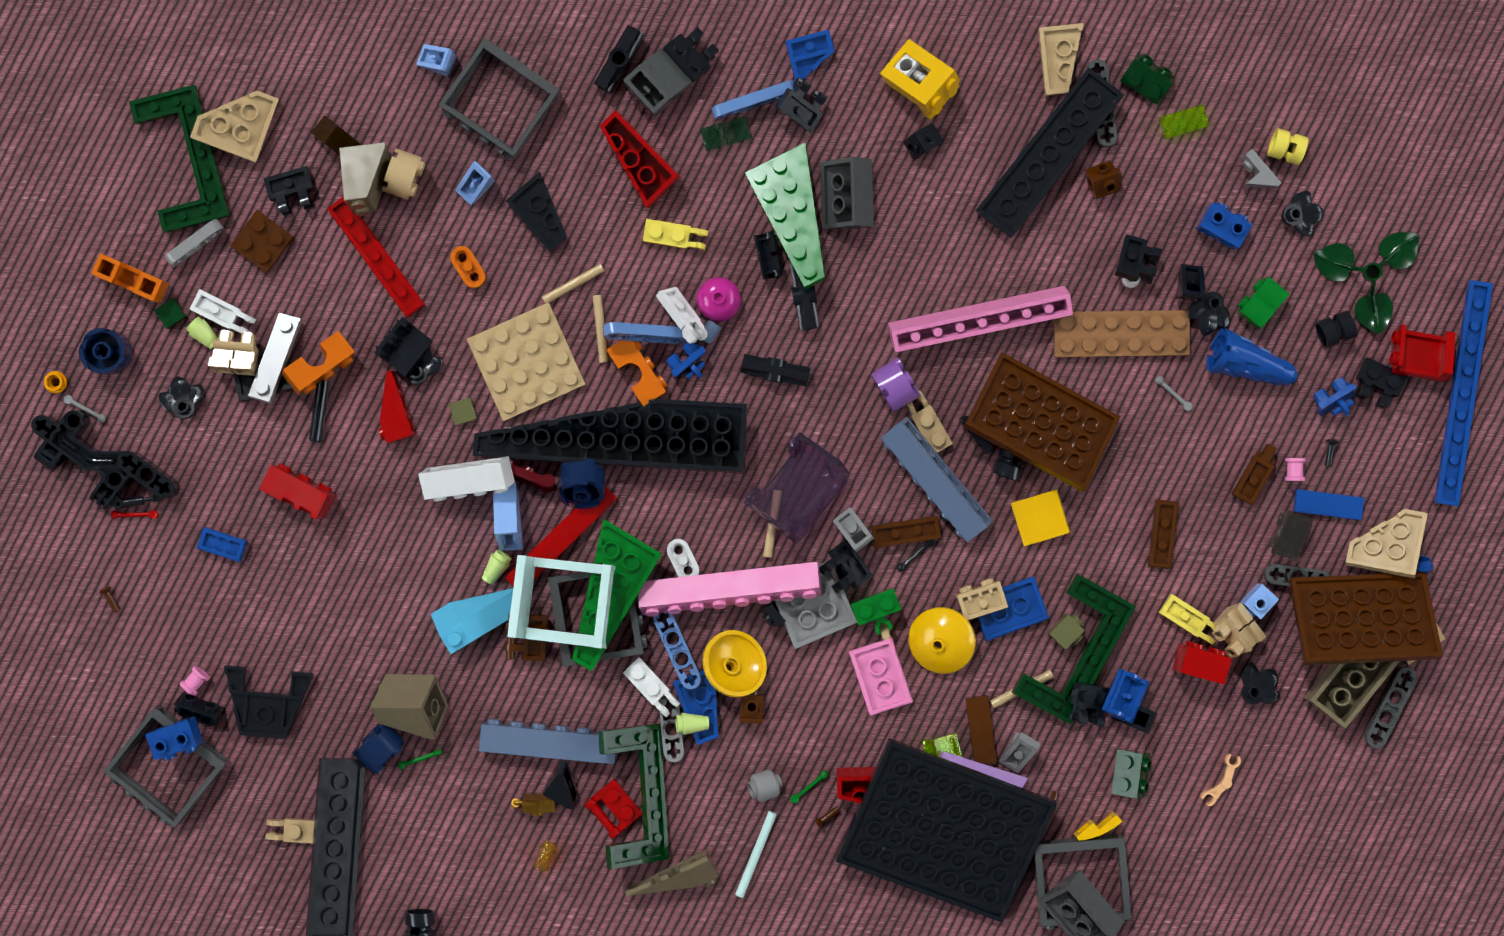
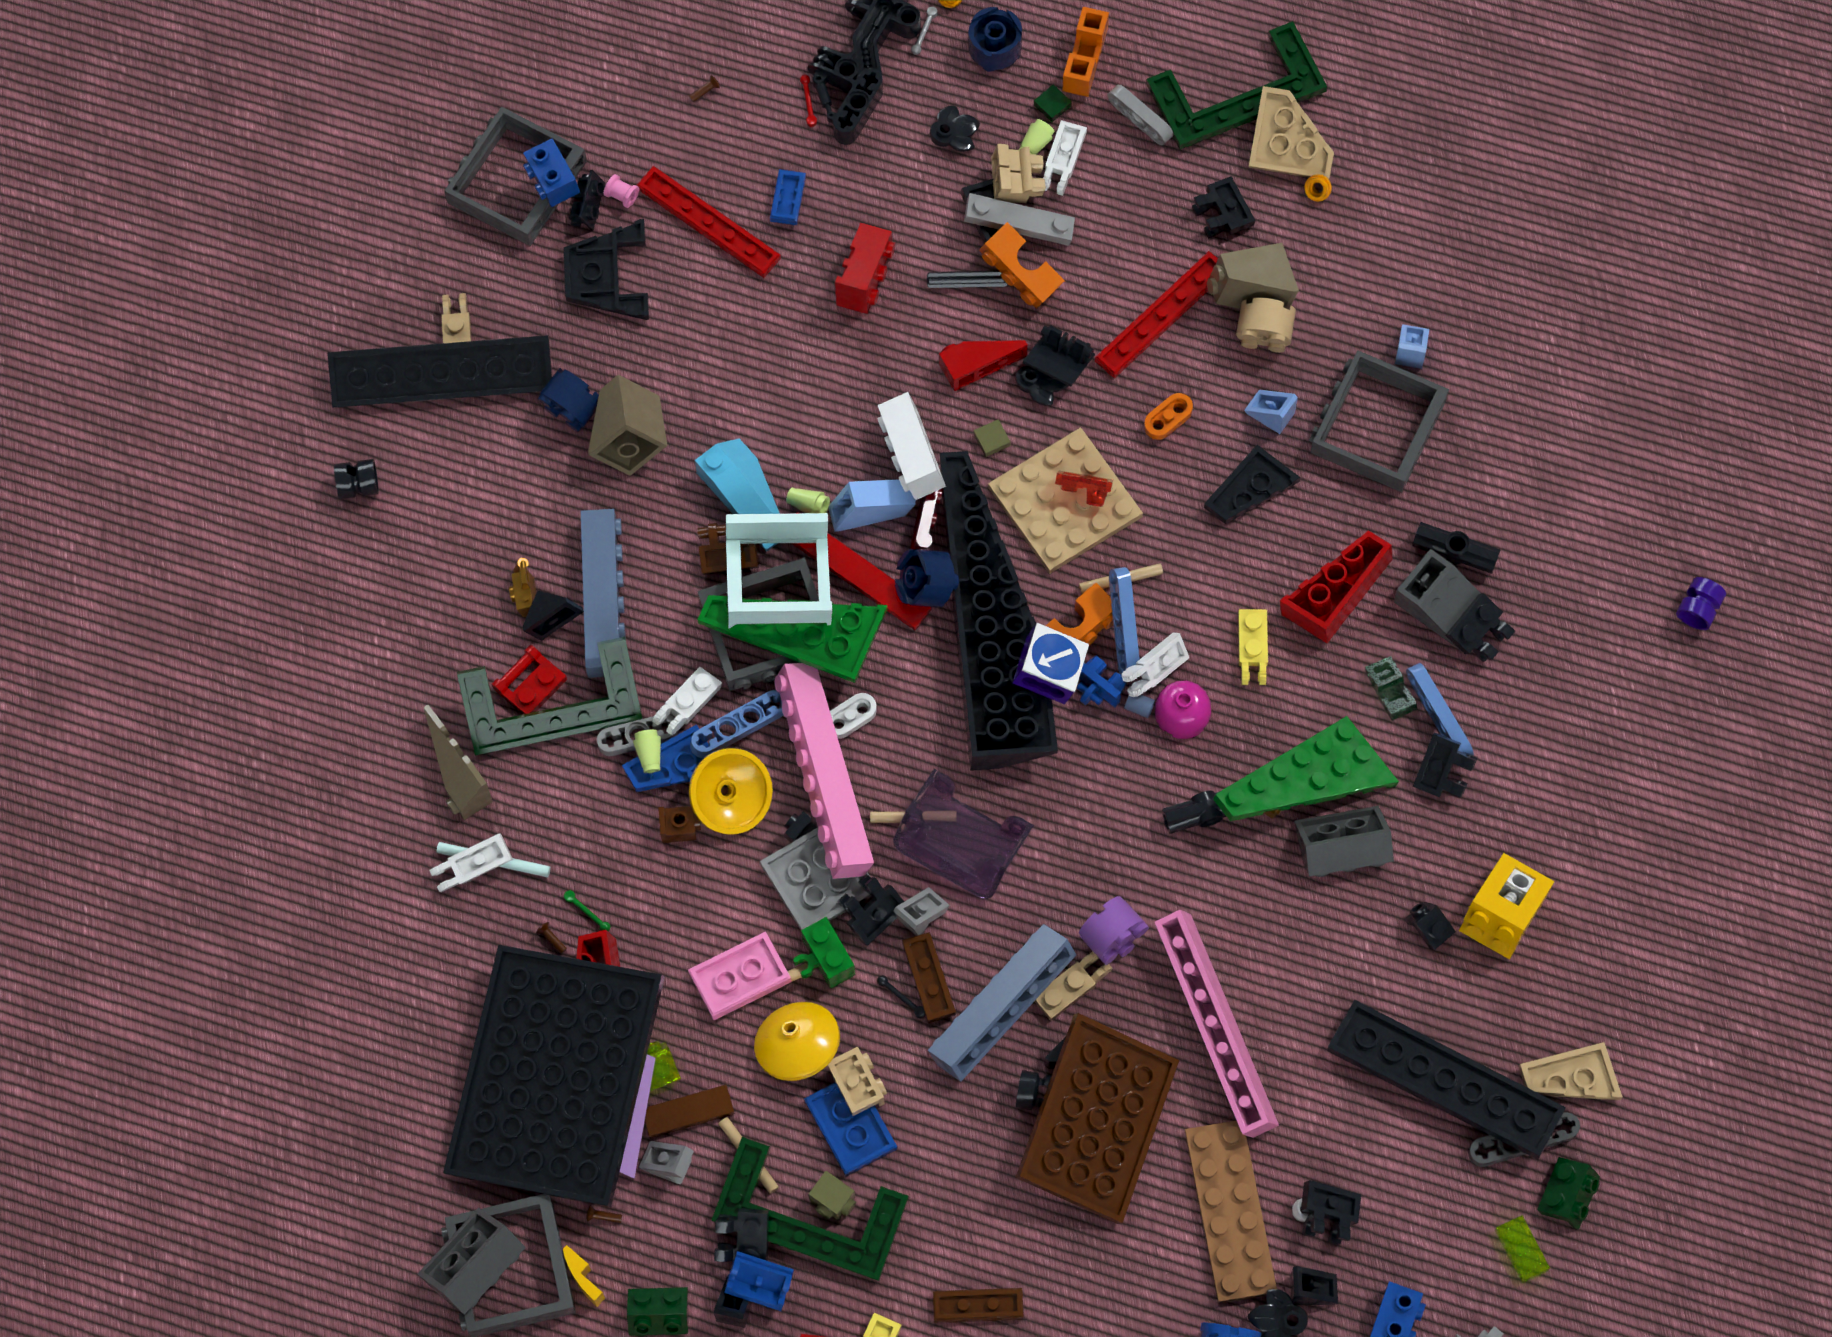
camera: 85 degrees right, 20 degrees down
(232, 612) = (709, 222): none -> red tile
(262, 241) = (1156, 188): reddish brown plate -> none
(290, 111) = (1310, 189): none -> light orange plate
(333, 135) = (1298, 243): dark brown slope -> none
(402, 764) = (551, 434): green hinge -> none
(522, 337) = (1096, 486): none -> clear red hinge
(545, 855) = (459, 610): clear yellow pin -> none
(570, 285) = (1171, 539): tan bar -> none
(674, 397) = (1050, 663): none -> piece
(759, 870) = (474, 862): none -> white hinge
(764, 785) = (581, 853): light grey head -> none
(769, 263) = (1247, 757): black hinge -> none
(775, 370) = (1106, 788): black piece -> none
(809, 52) = (1512, 769): blue wing -> none
(1040, 517) = (974, 1142): yellow slope -> none
(1103, 179) = (1425, 1152): reddish brown brick -> none
(1186, 405) = (1151, 1311): light grey hinge -> none

